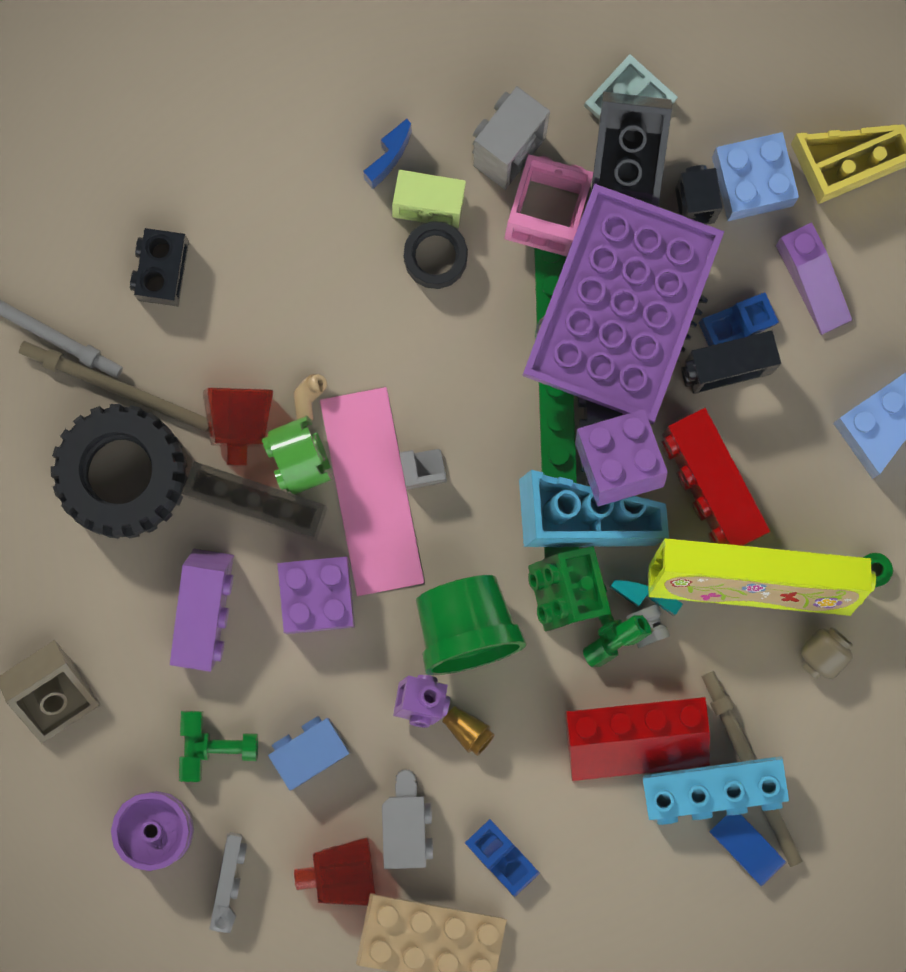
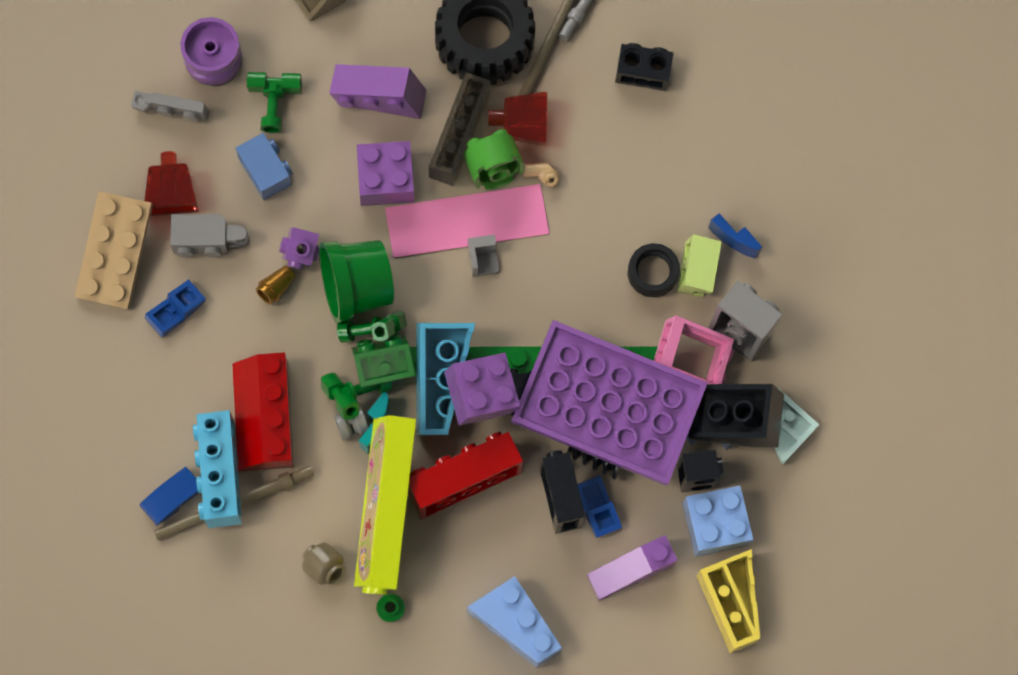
camera: 85 degrees right, 10 degrees down
(527, 589) = (379, 328): none -> green bar

